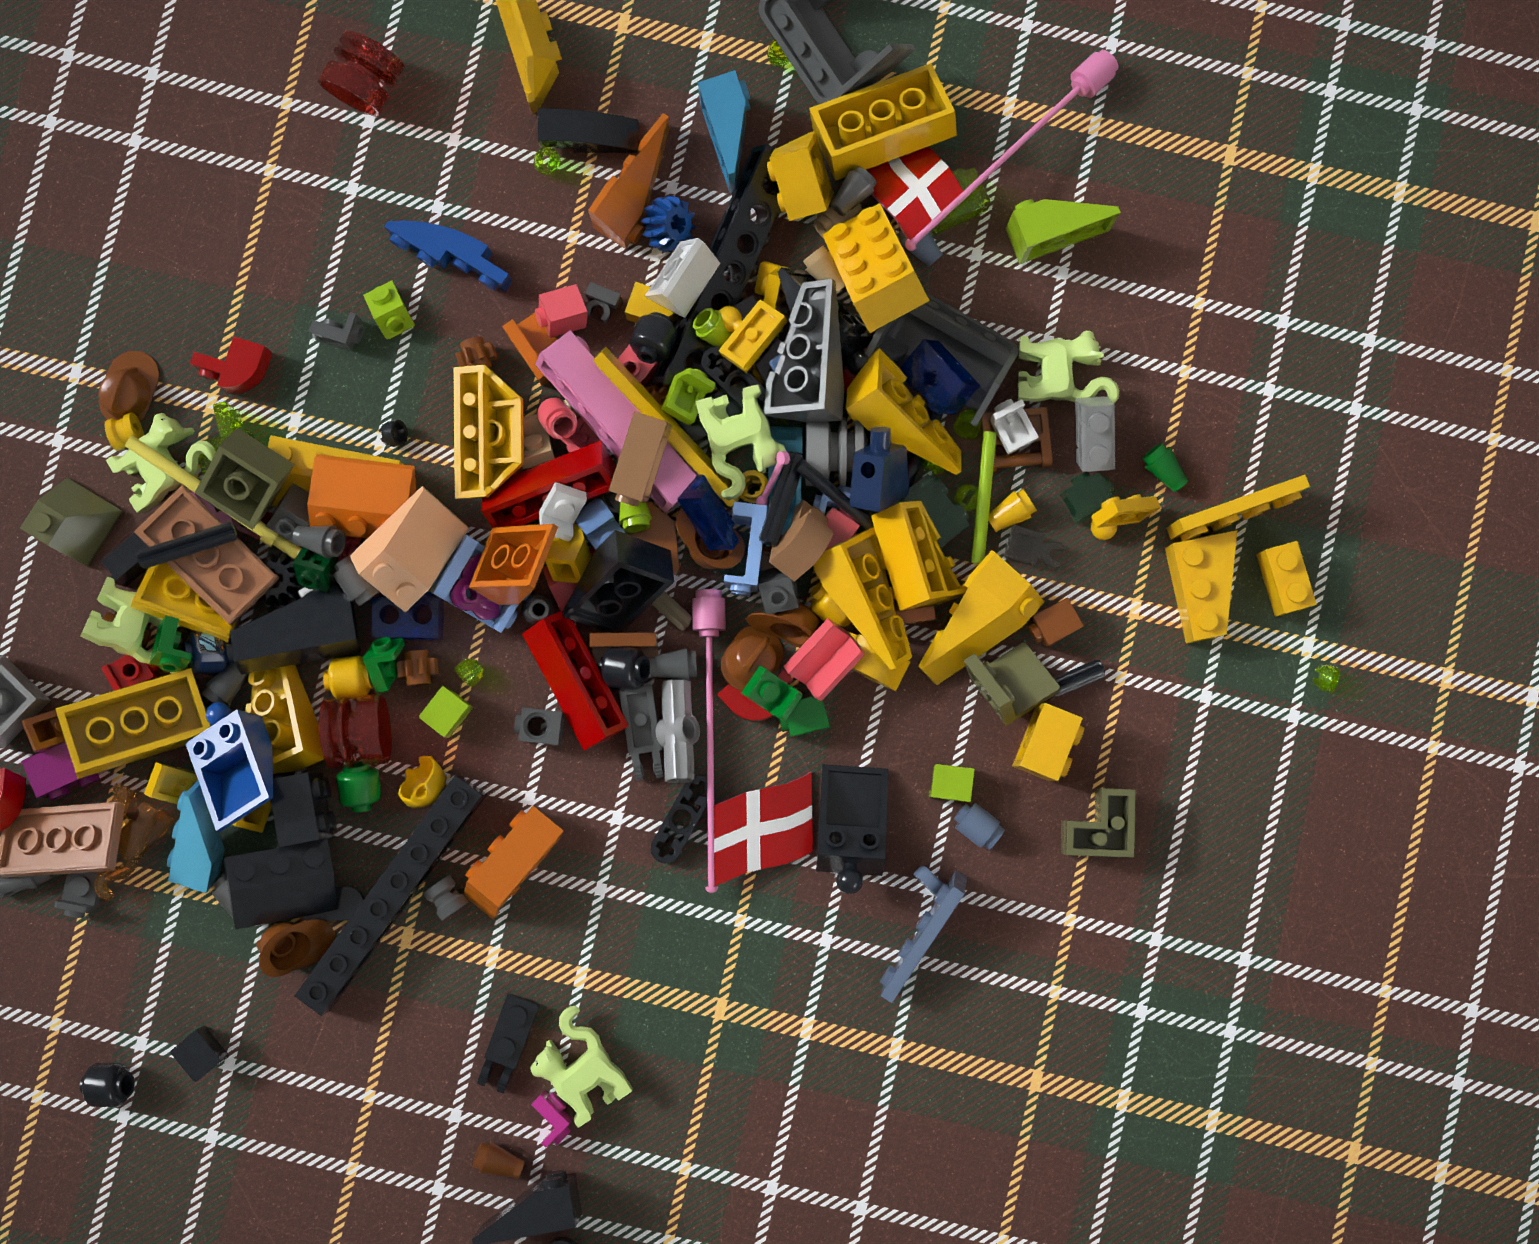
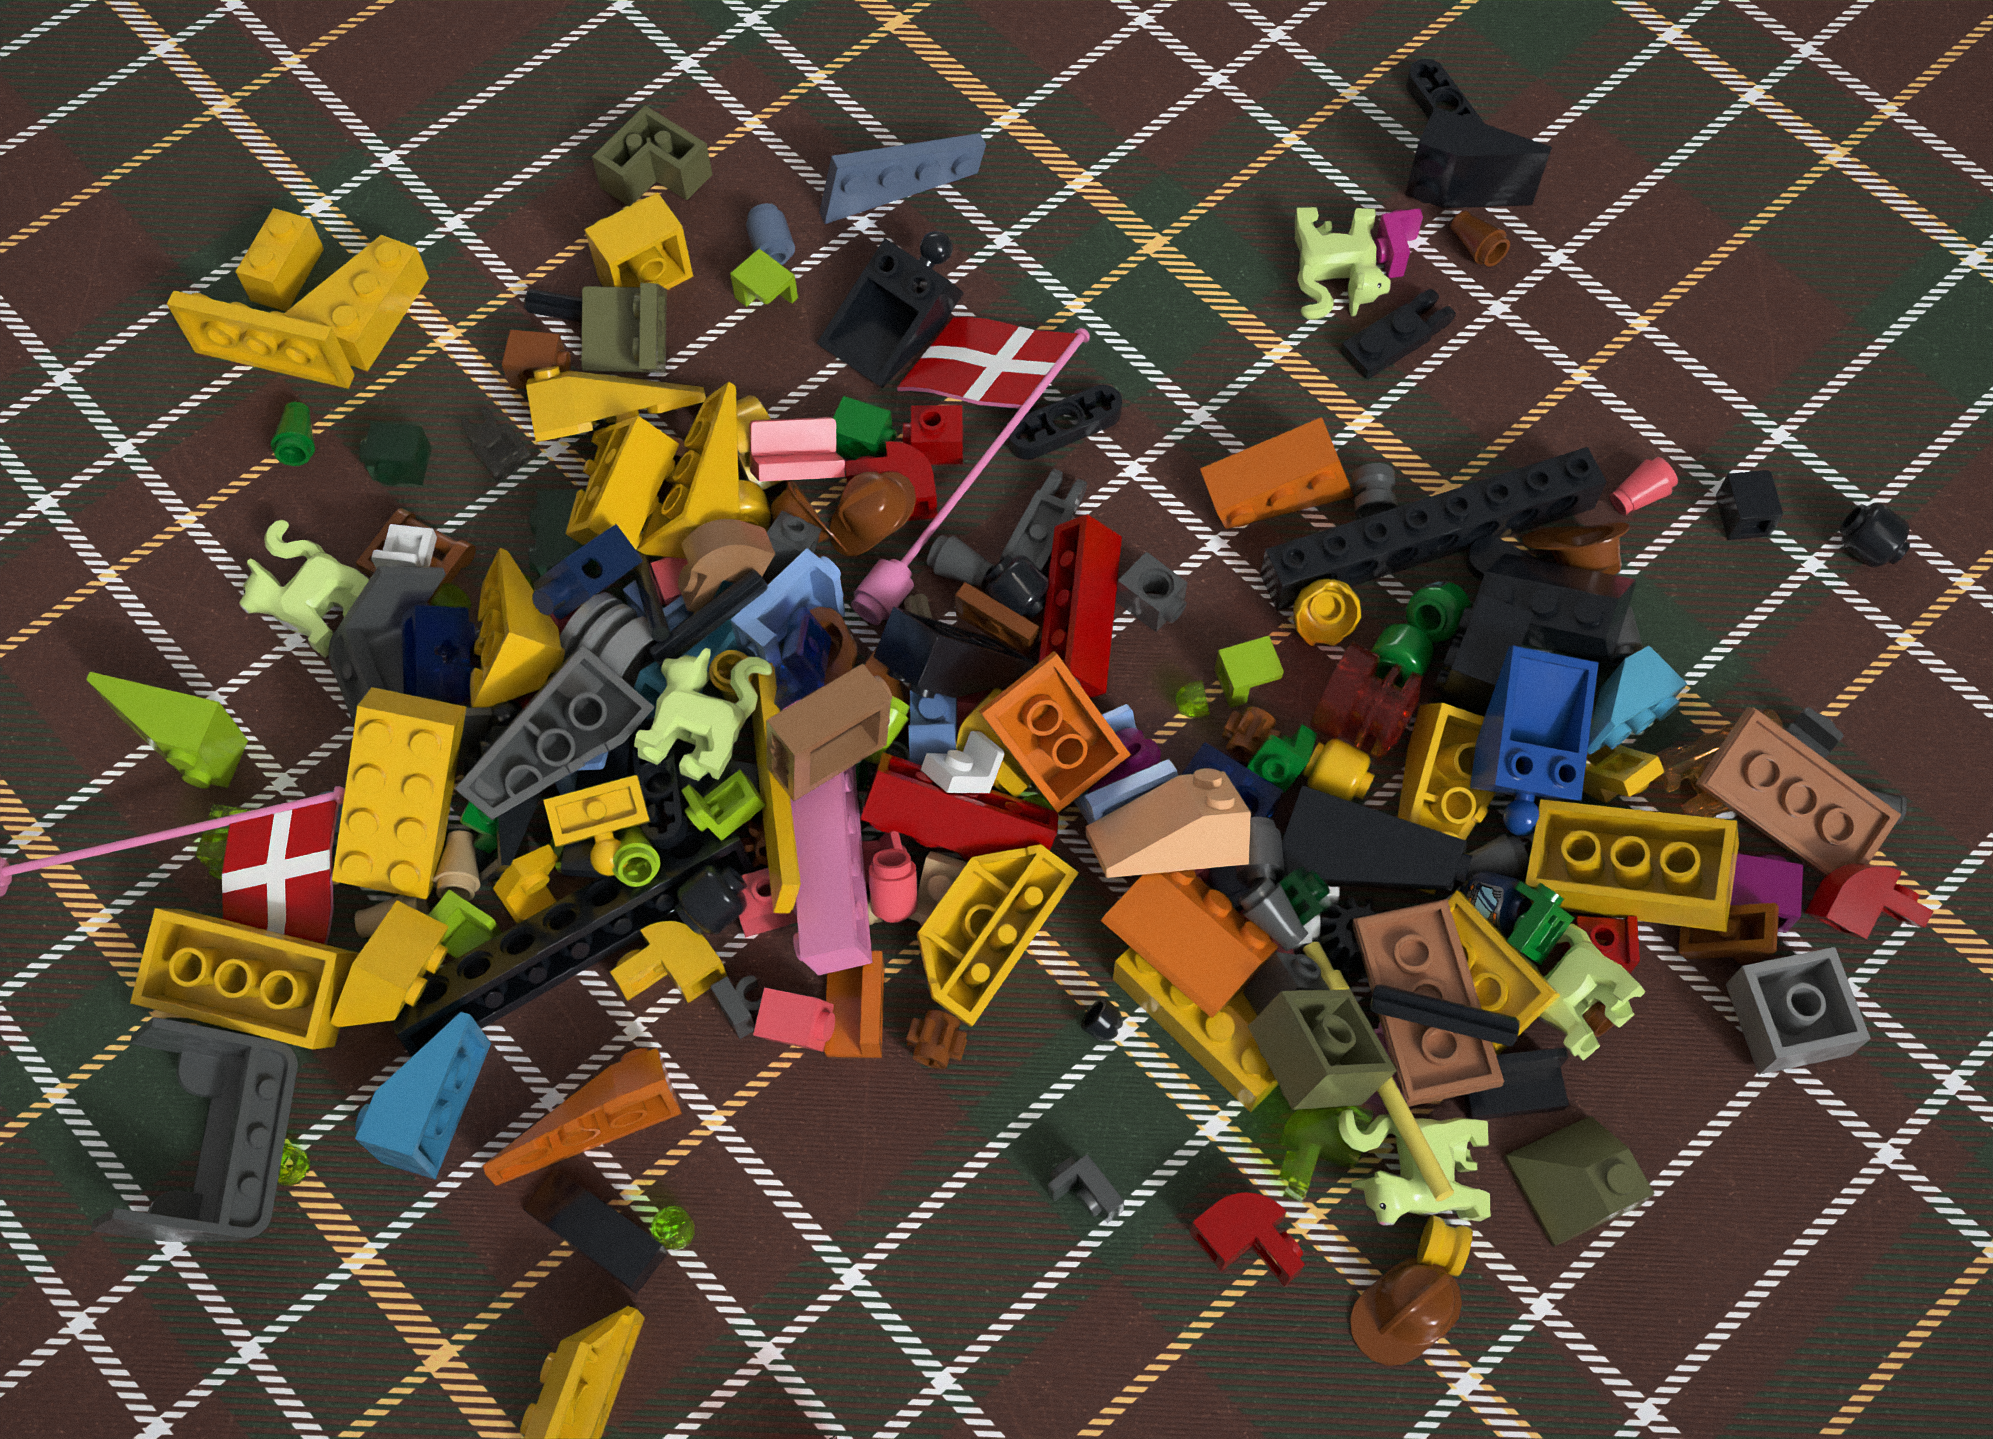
camera: 145 degrees left, 20 degrees down
(276, 1023) = (1644, 486): none -> coral cone
(352, 831) = (1437, 610): none -> green head
(389, 310) = (1003, 1178): lime bracket -> none
(441, 244) = (883, 1210): blue slope -> none
(668, 223) = (589, 1035): blue gear -> none
(677, 731) = (1006, 493): light grey piece -> none
(683, 277) = (624, 946): white slope -> none
(756, 746) = (936, 432): none -> red brick
(772, 693) = (875, 444): green bracket -> none
(782, 459) = (673, 646): bright pink hinge -> none
(793, 238) = (466, 924): none -> lime panel
(854, 189) = (347, 918): dark grey cone -> none
(928, 879) = (858, 219): sand blue tile -> none
(961, 493) = (516, 537): clear neon green hinge -> none
(984, 496) = (499, 515): lime bar -> none
(1012, 510) = (483, 491): yellow cone -> none
(1095, 433) = (330, 496): light grey brick -> none
(1121, 512) = (375, 404): yellow plate -> none
(1327, 678) = (327, 161): clear neon green hinge -> none

